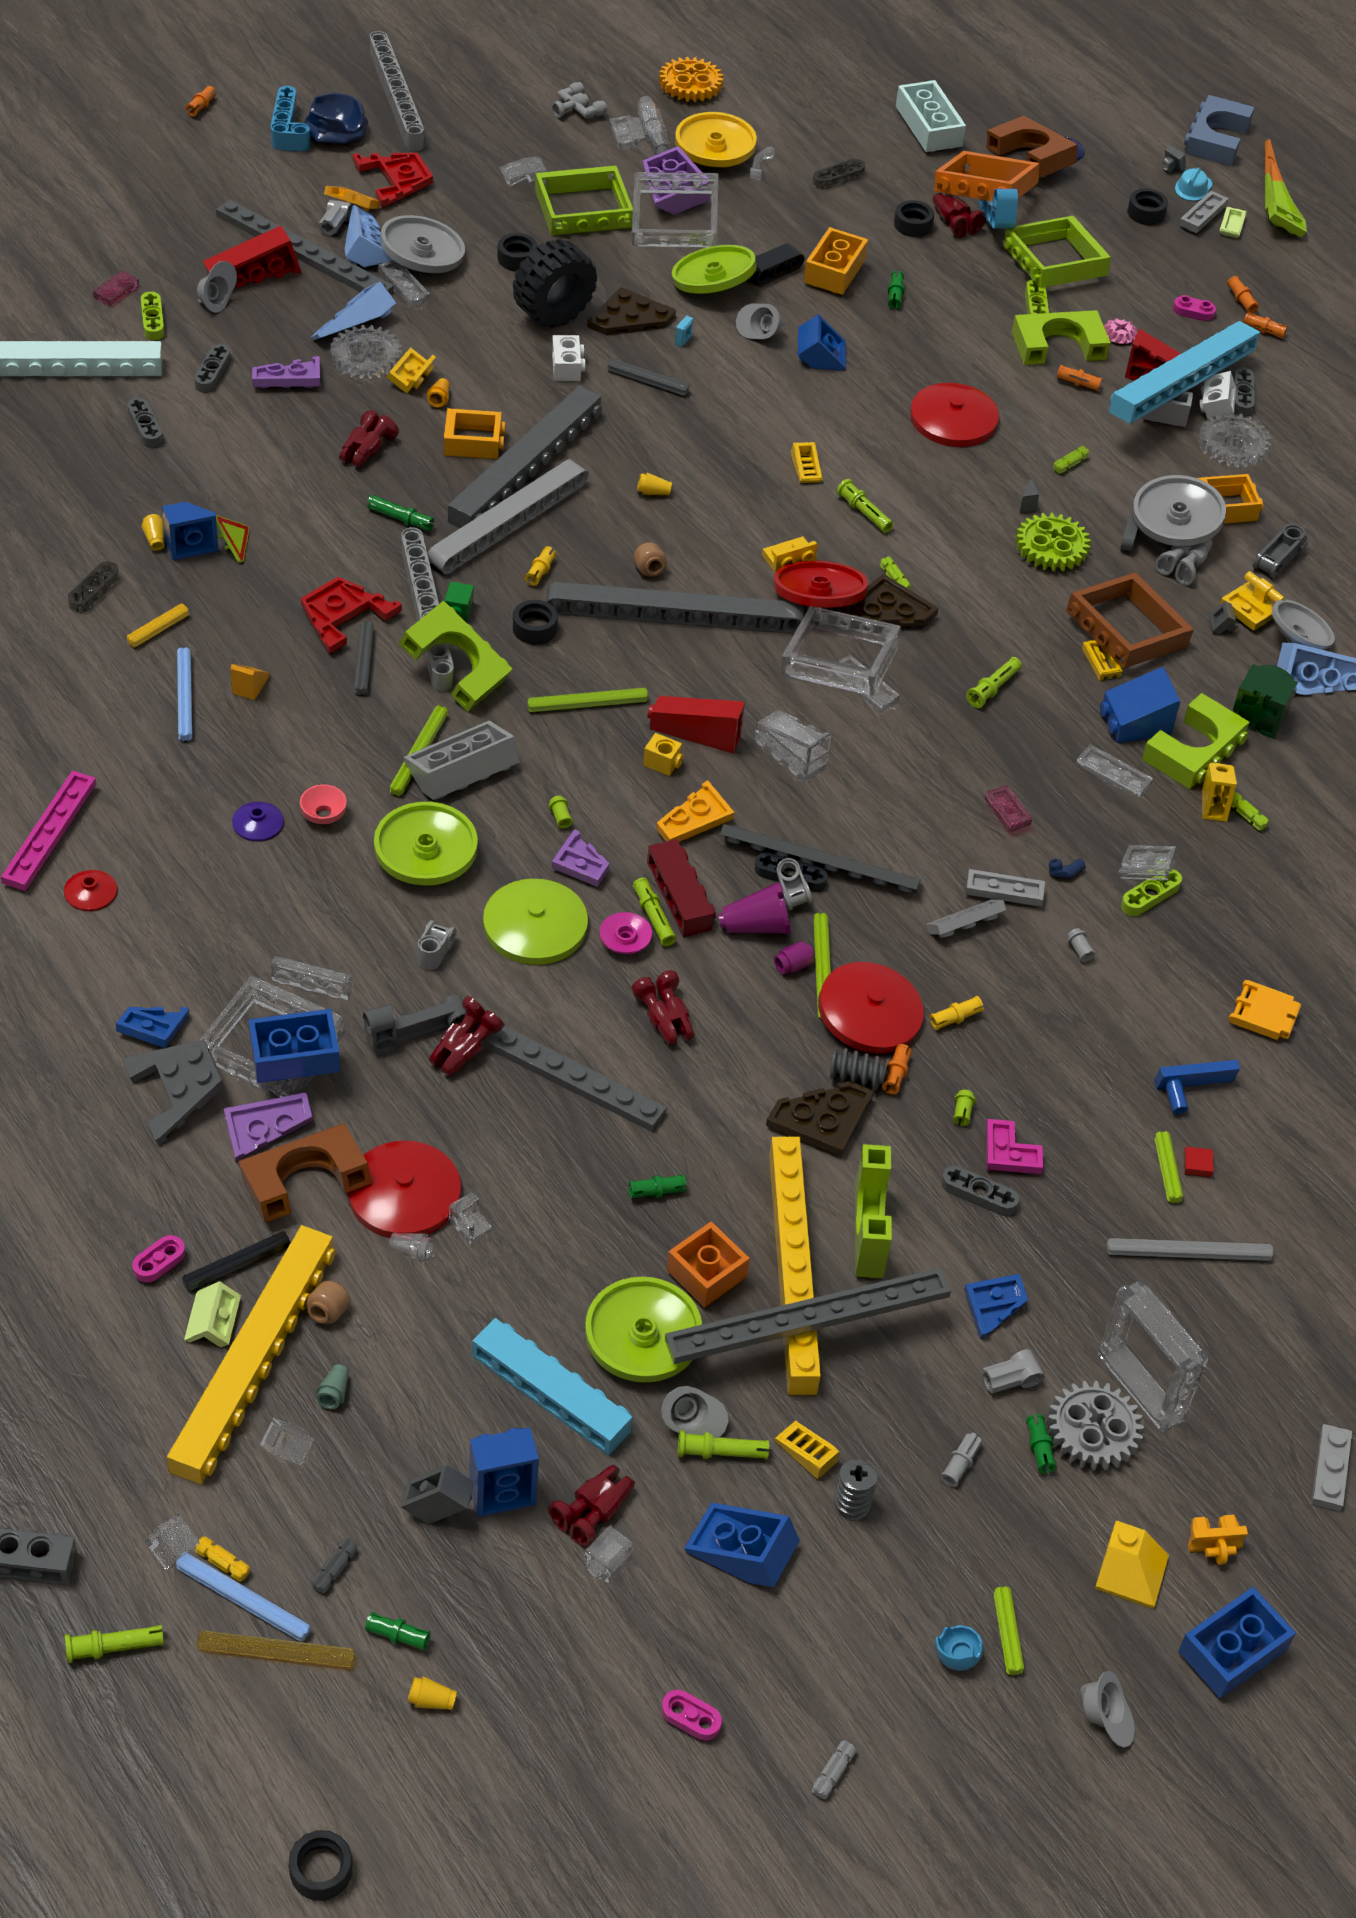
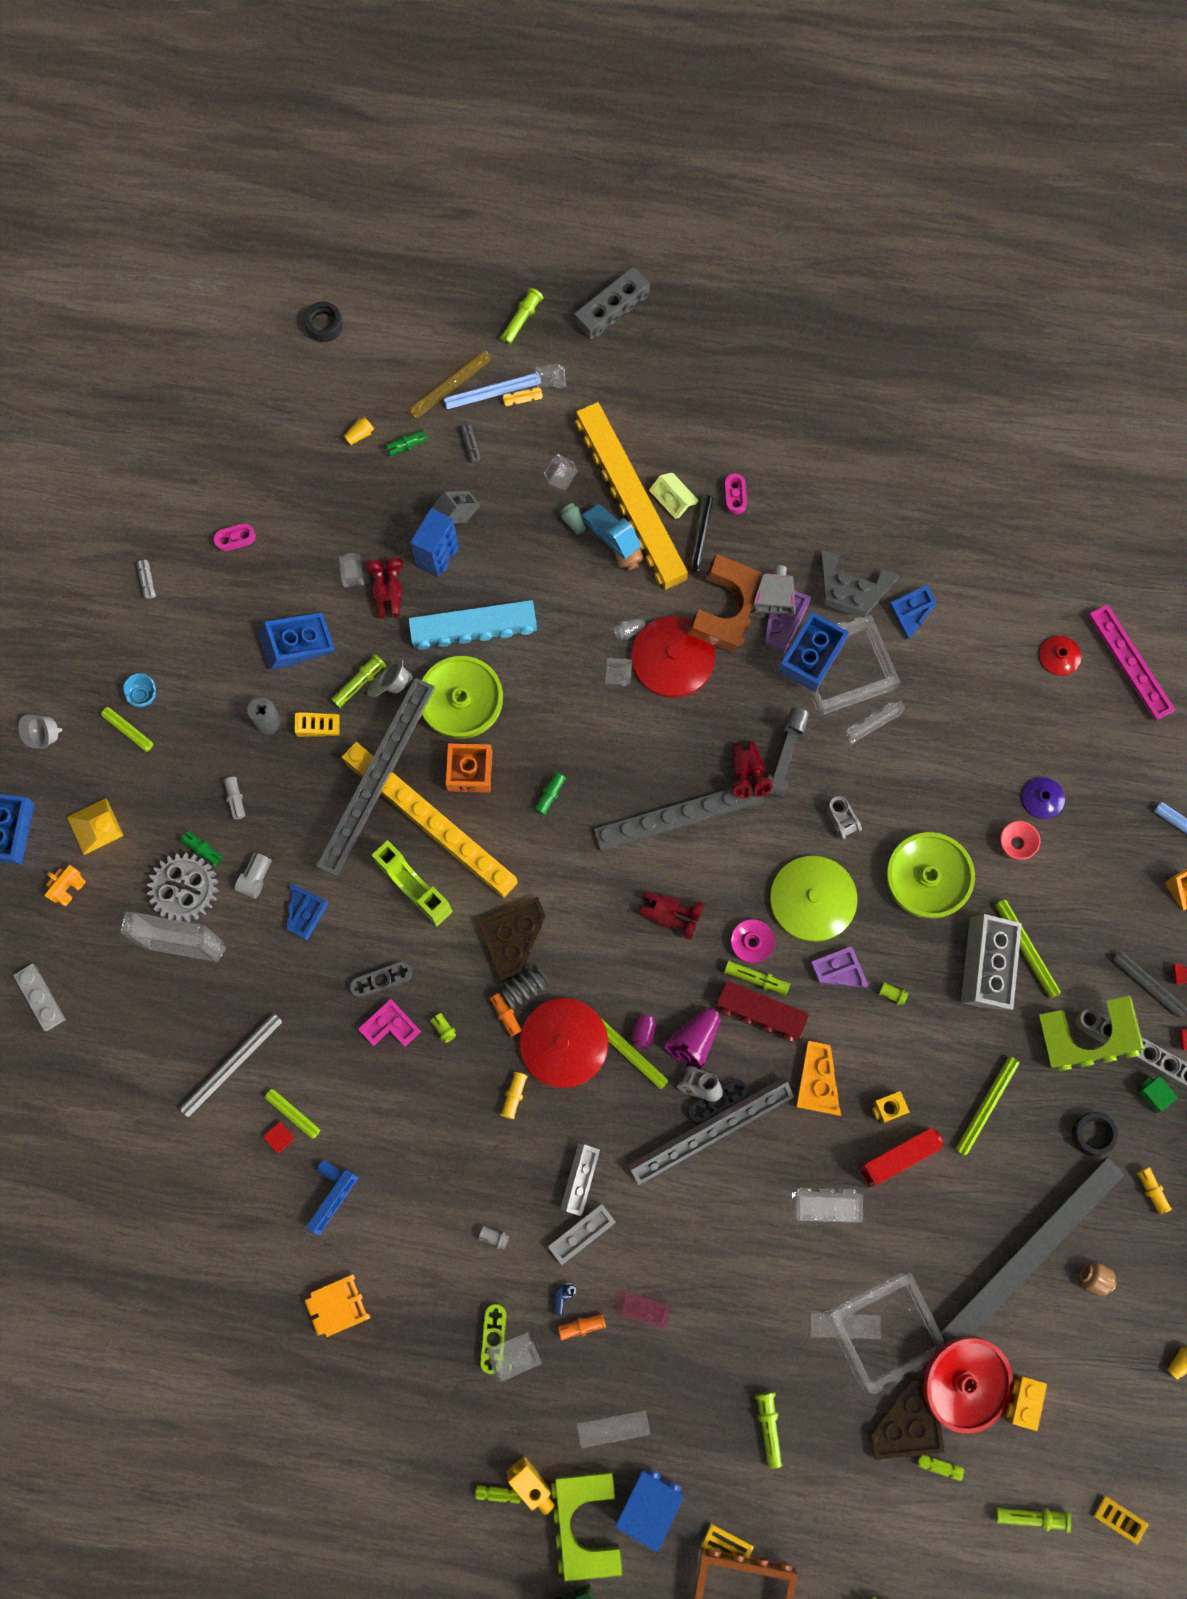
camera: 140 degrees right, 25 degrees up
(249, 1132) = (776, 593): none -> light grey torso
(321, 1321) = (614, 533): none -> dark azure beam
(1071, 840) = (581, 1326): none -> orange pin

